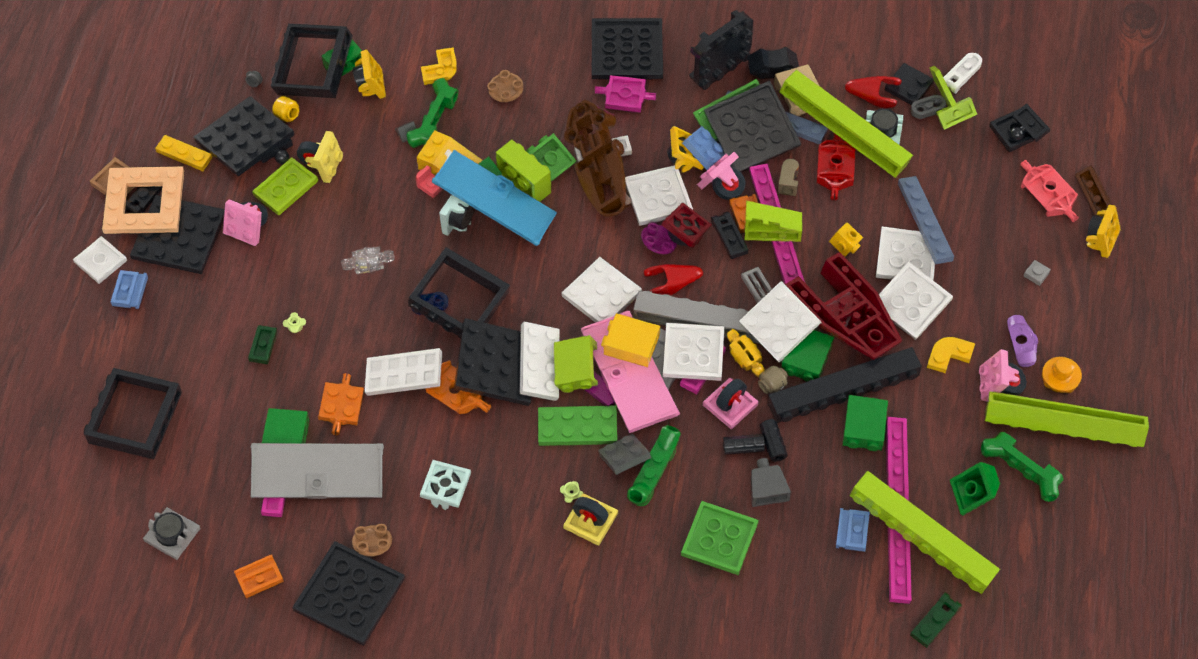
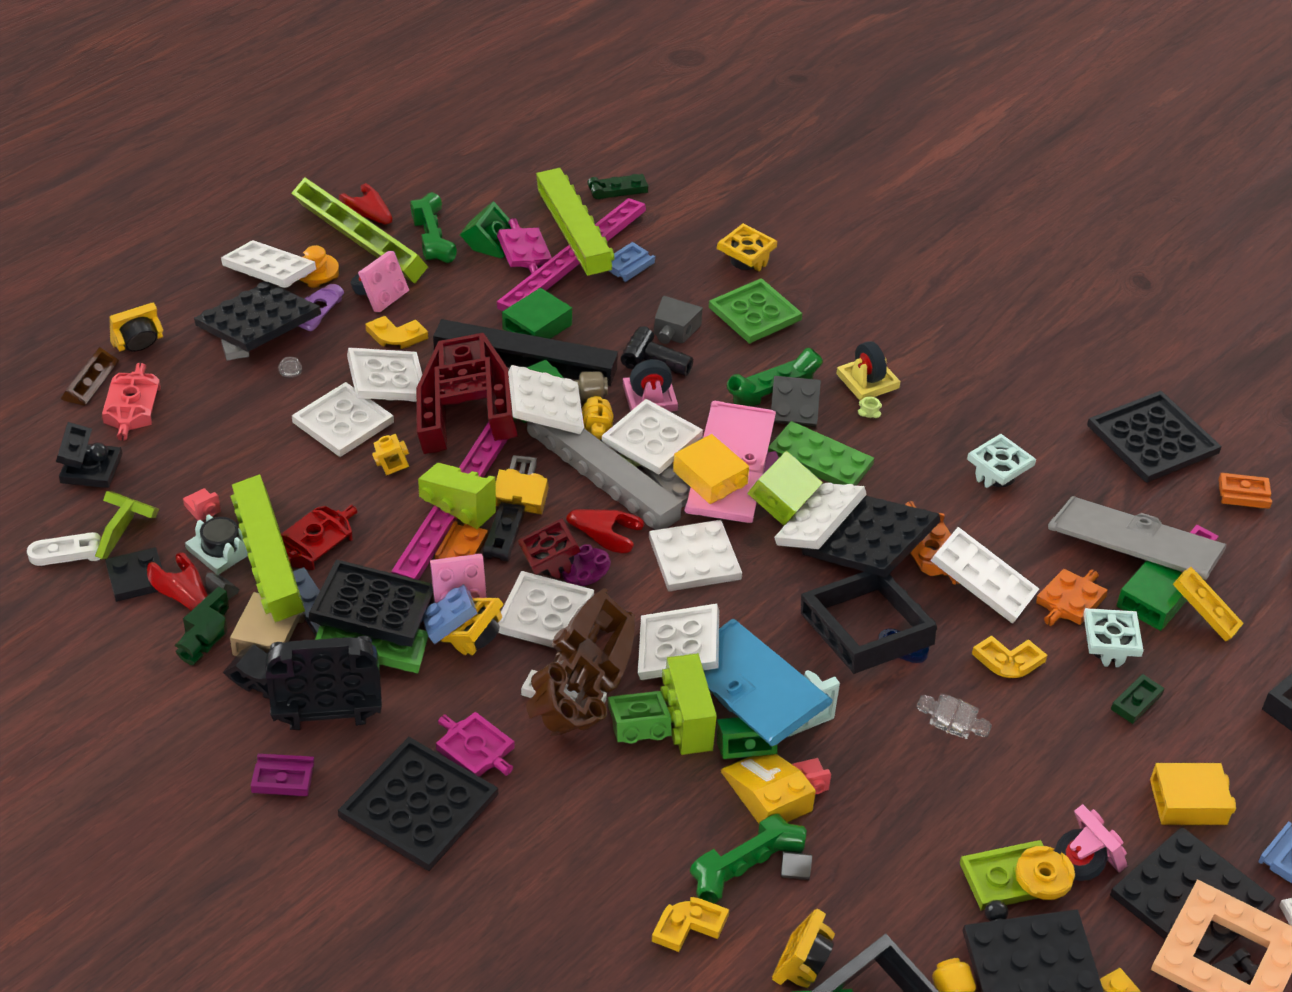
camera: 150 degrees left, 15 degrees down
(202, 293) = (1192, 794): none -> yellow brick
(244, 434) = (1208, 603): none -> yellow plate
(262, 178) = (1045, 861): none -> yellow plate
(296, 327) = (1084, 705): yellowish green plate -> none
(298, 376) = (1113, 635): none -> light aqua piece
(322, 156) = (943, 871): light yellow plate -> none
(356, 324) = (1009, 663): none -> yellow plate
(372, 540) = (1106, 463): medium nougat dish -> none
(505, 86) = (620, 844): medium nougat dish -> none
(560, 212) = (678, 634): none -> white plate
(708, 21) = (282, 774): none -> magenta plate
(742, 261) = (522, 490): none -> yellow brick
(773, 597) = (747, 248): none -> yellow piece
(789, 172) = (382, 549): dark tan leg -> none
(833, 70) = (203, 627): none -> dark green plate
(854, 102) = (214, 580): none -> dark grey slope
(922, 147) = (202, 503): none -> coral bracket
(925, 220) = (290, 429): sand blue plate -> none
(927, 107) = (148, 535): dark grey plate -> none
(938, 488) = (523, 246): none -> dark pink plate
(983, 276) = (290, 367): none -> clear plate
(1046, 297) = (257, 316): none -> black plate
(1091, 346) = (268, 263): none -> white plate
(1091, 462) = (368, 206): none -> red animal

